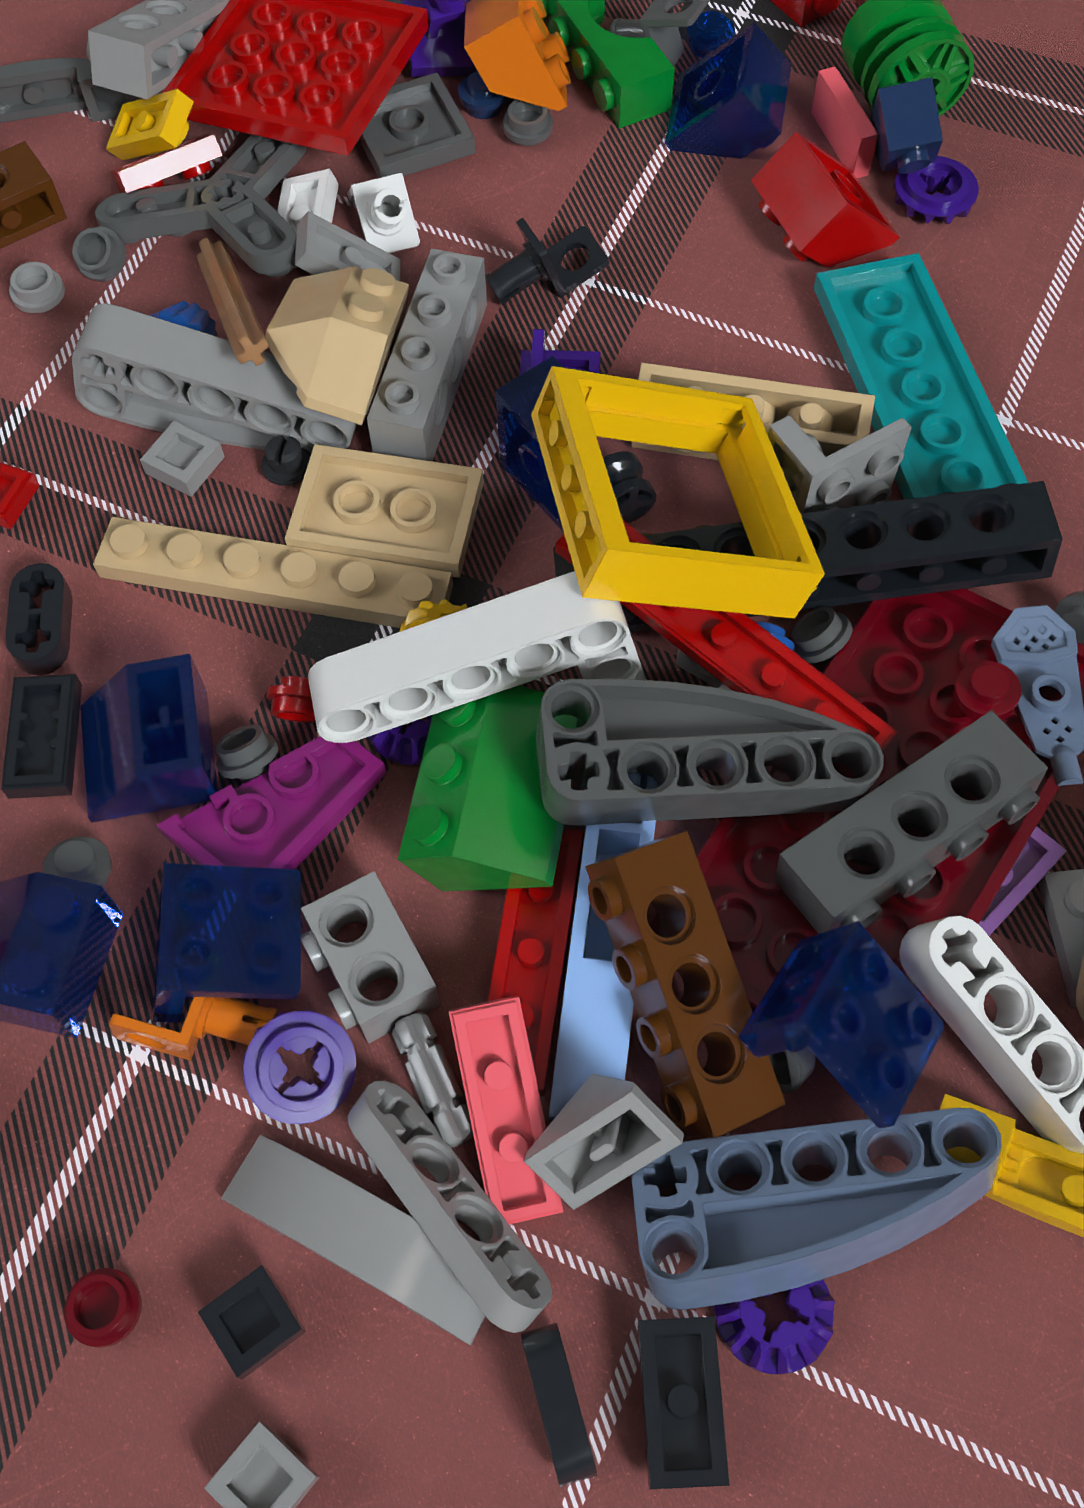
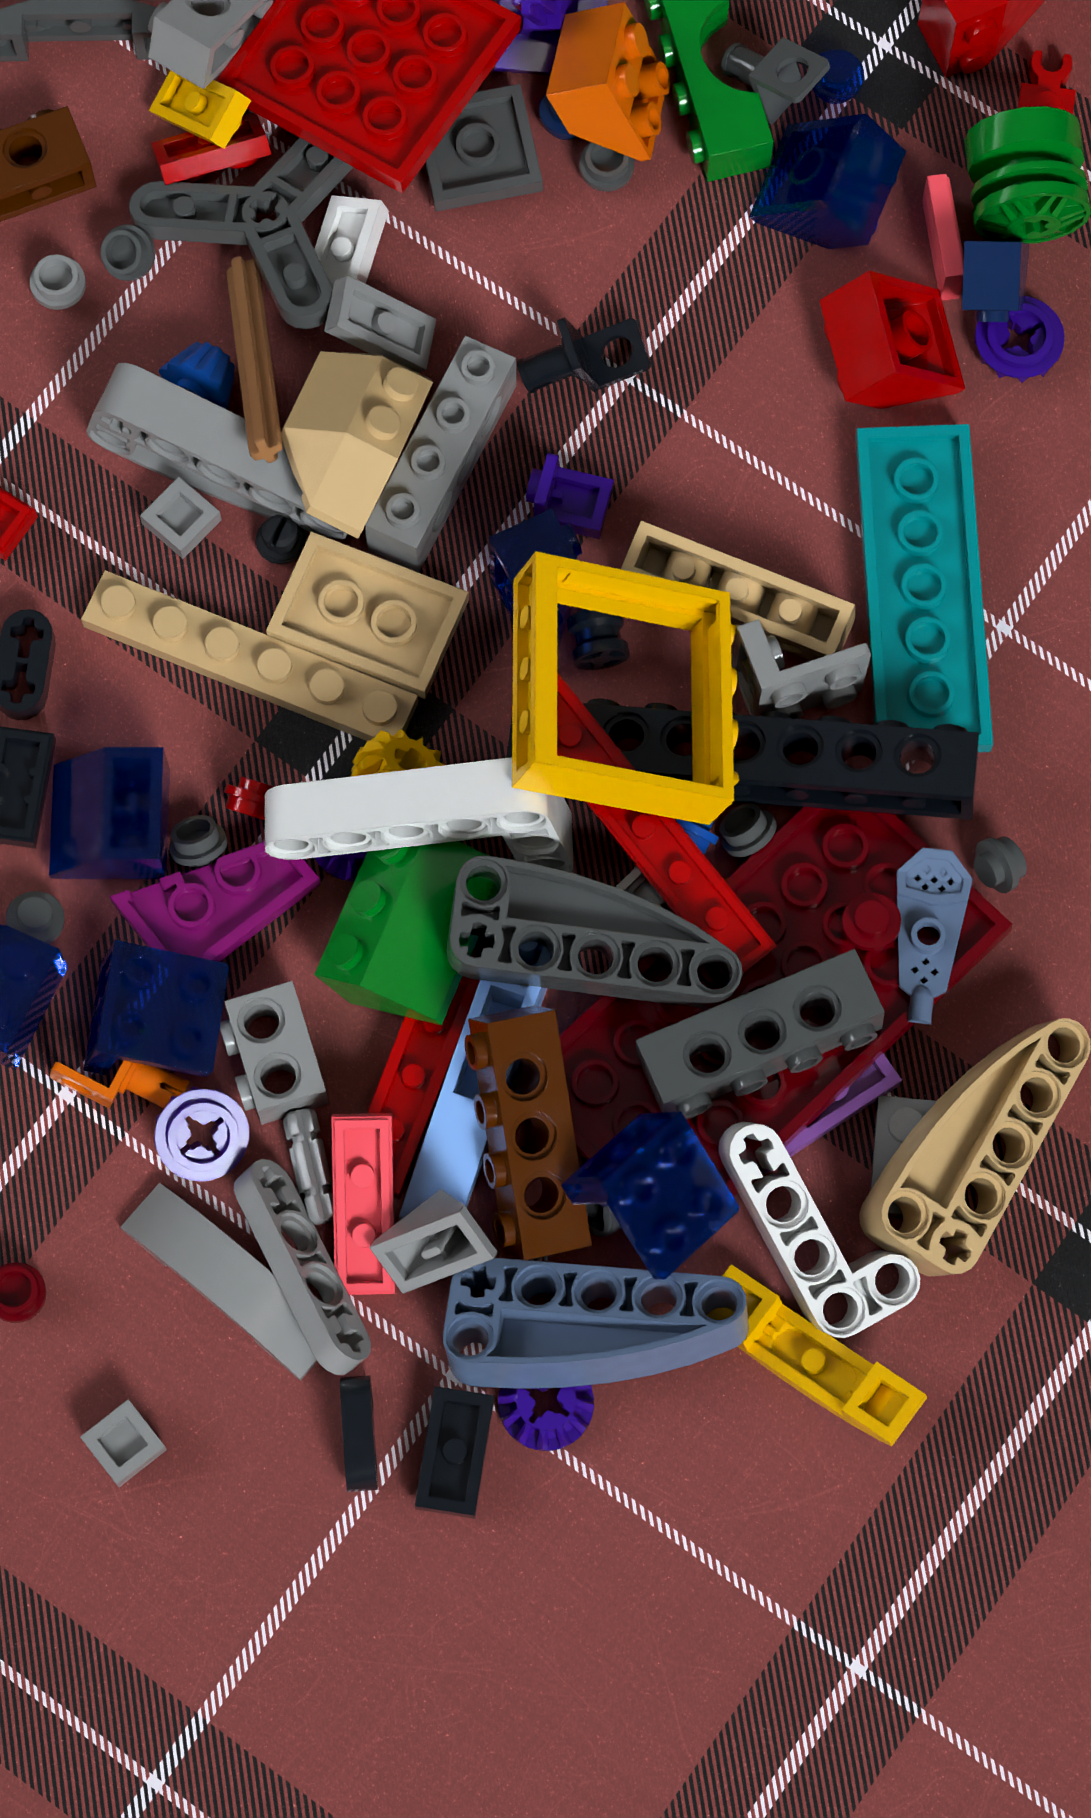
camera: 10 degrees right, 10 degrees up
(251, 1322) = (132, 1326): black plate -> none
(385, 213) = (429, 257): white bracket -> none

